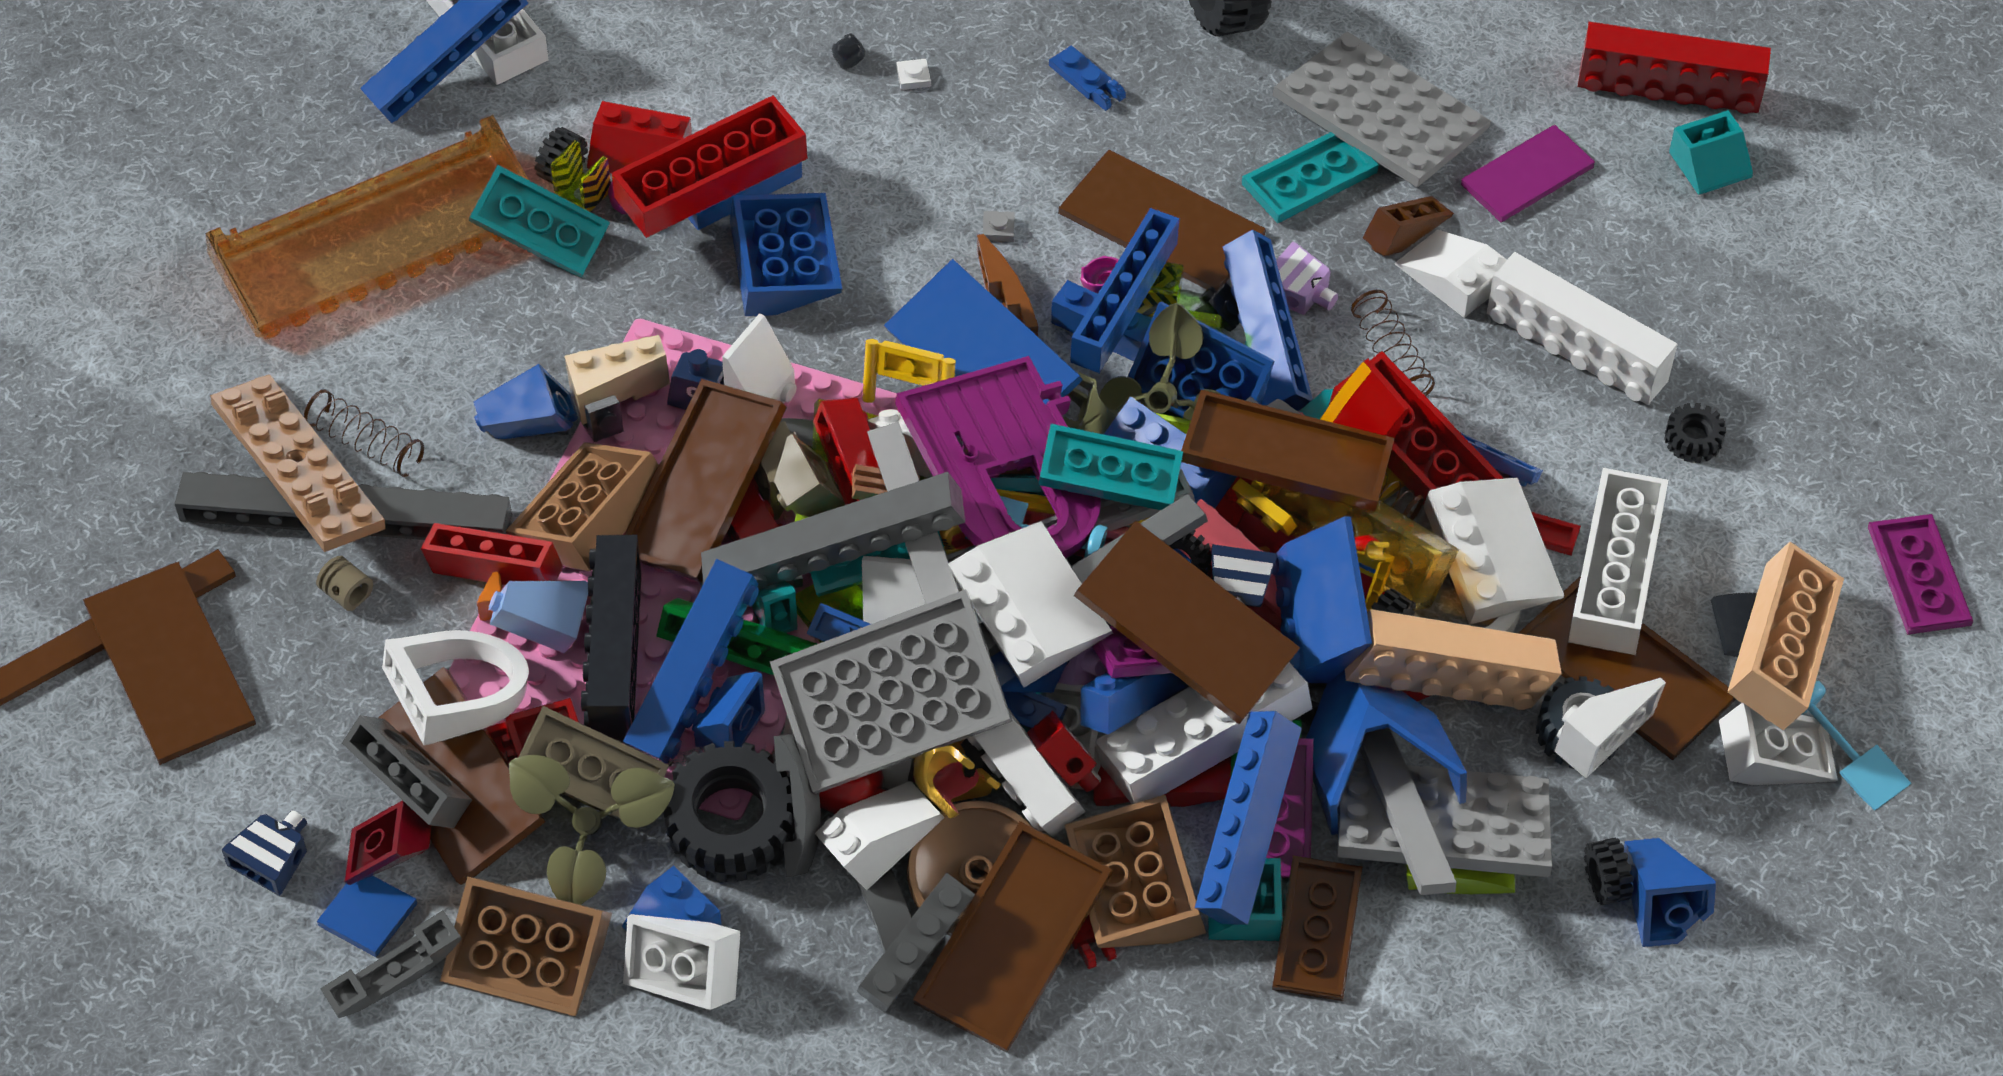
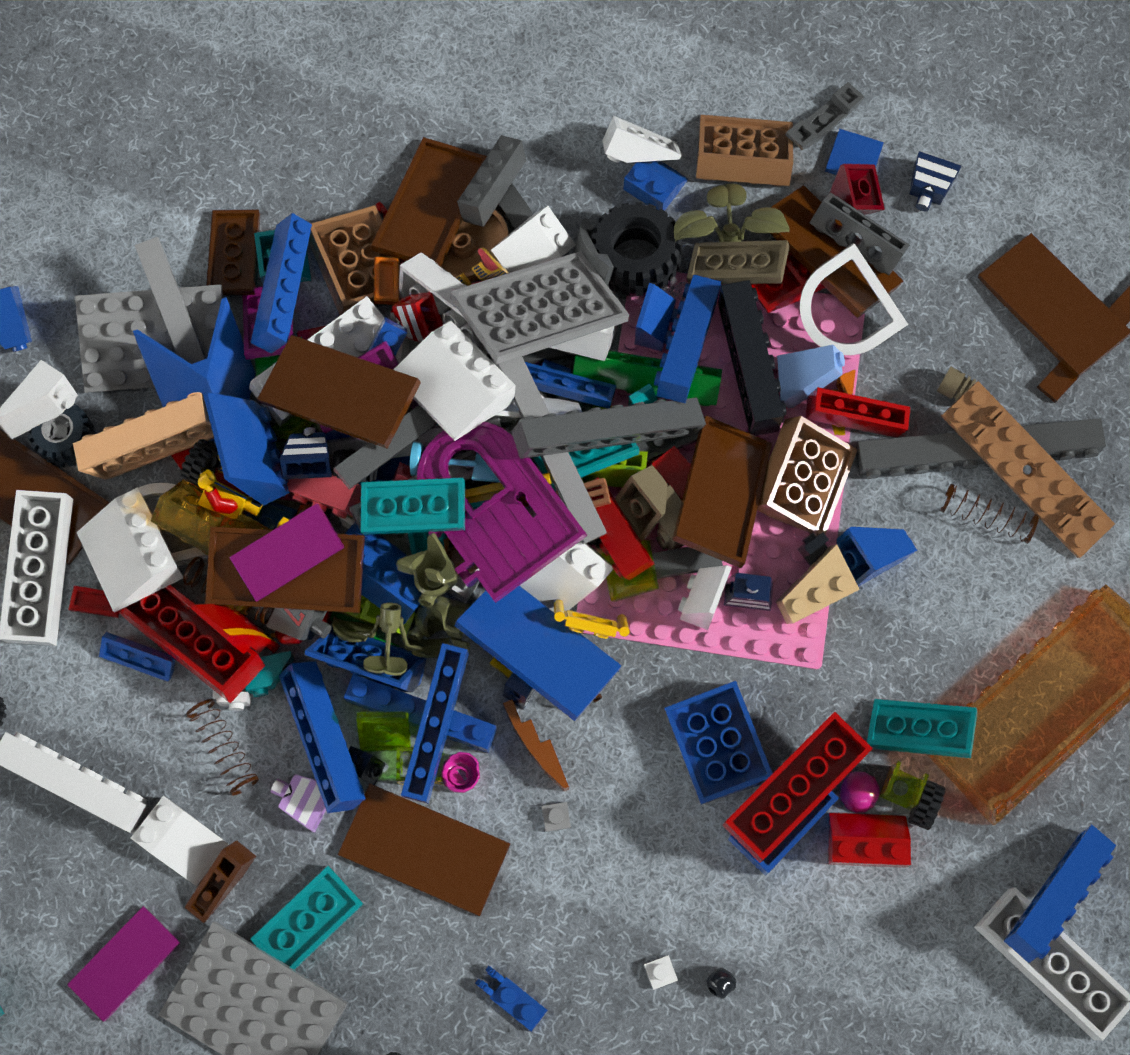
camera: 170 degrees right, 20 degrees up
(1099, 824) = (386, 280): none -> orange tile
(1103, 413) = (432, 571): none -> olive piece
(1281, 453) = (287, 552): none -> magenta tile
(1608, 871) = (39, 318): black tyre -> none

